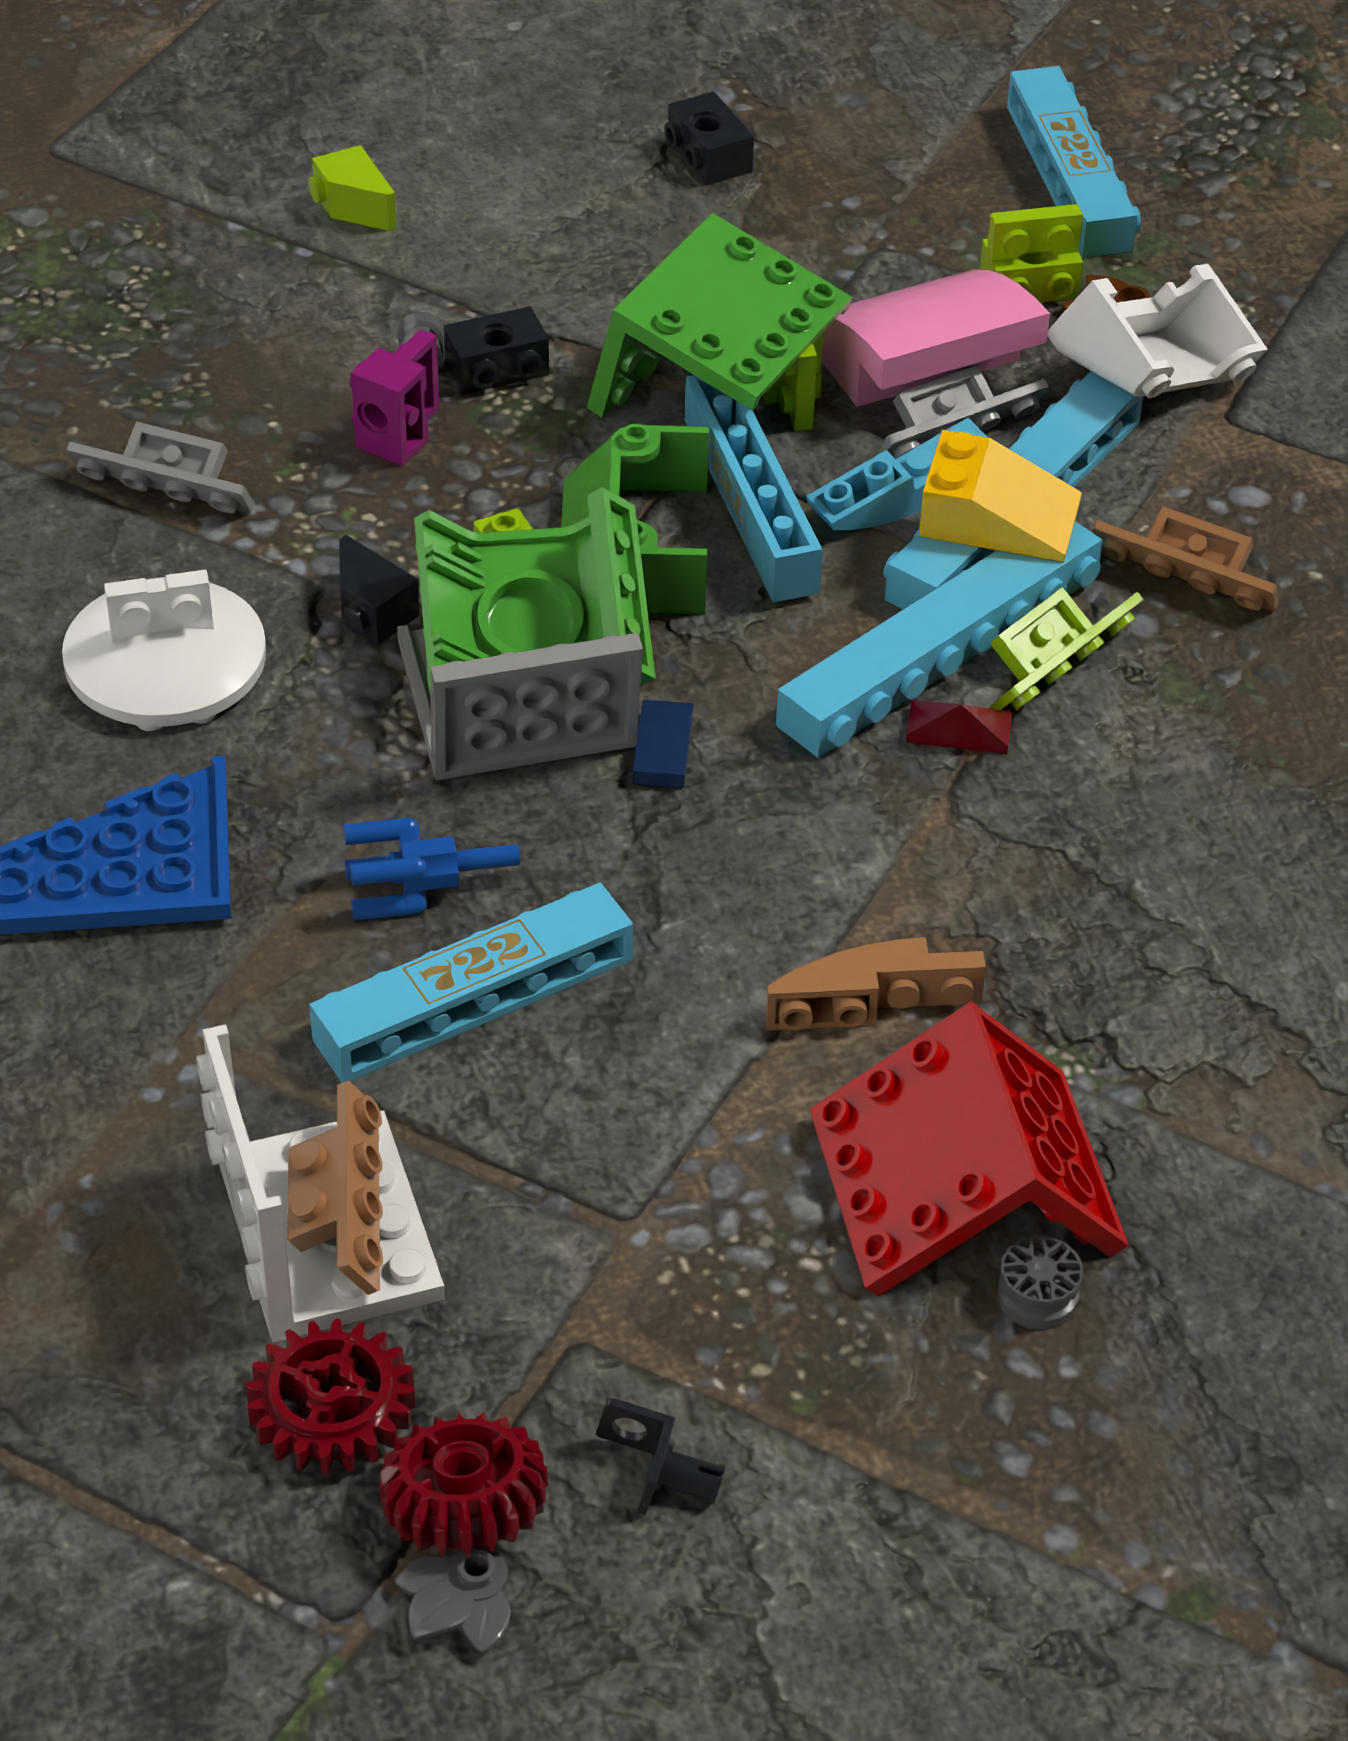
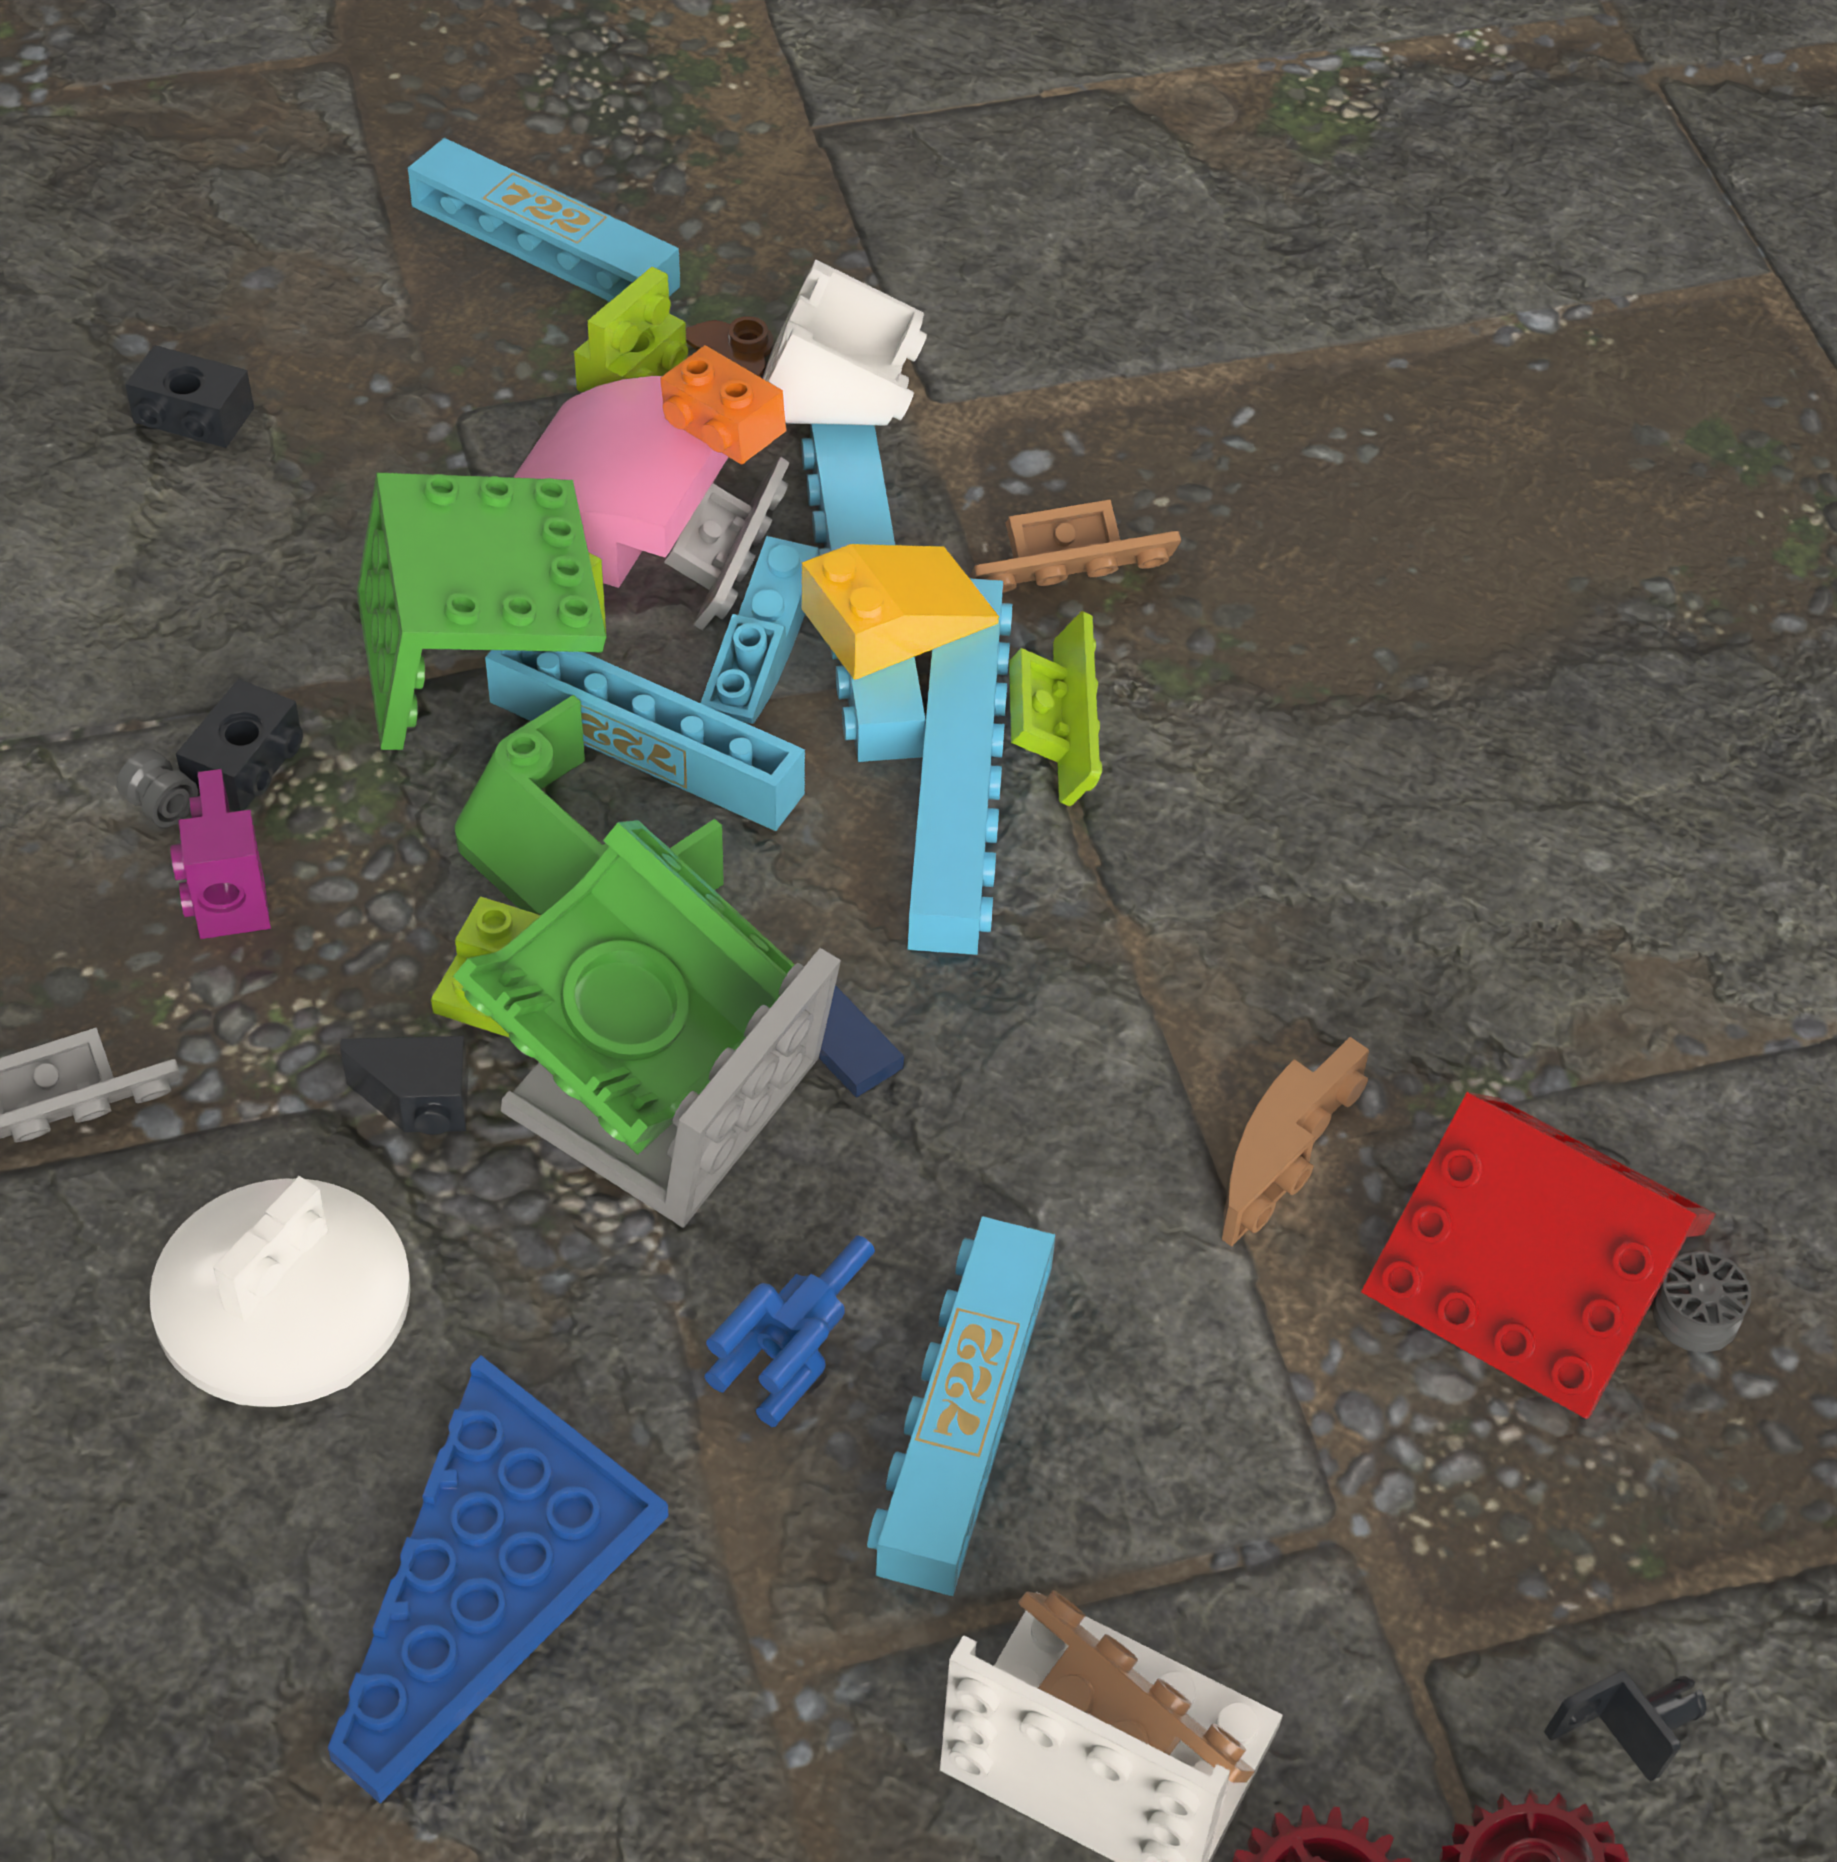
camera: 45 degrees left, 5 degrees up
(959, 726) = (1057, 840): dark red slope -> none
(1002, 304) = (723, 404): none -> orange brick

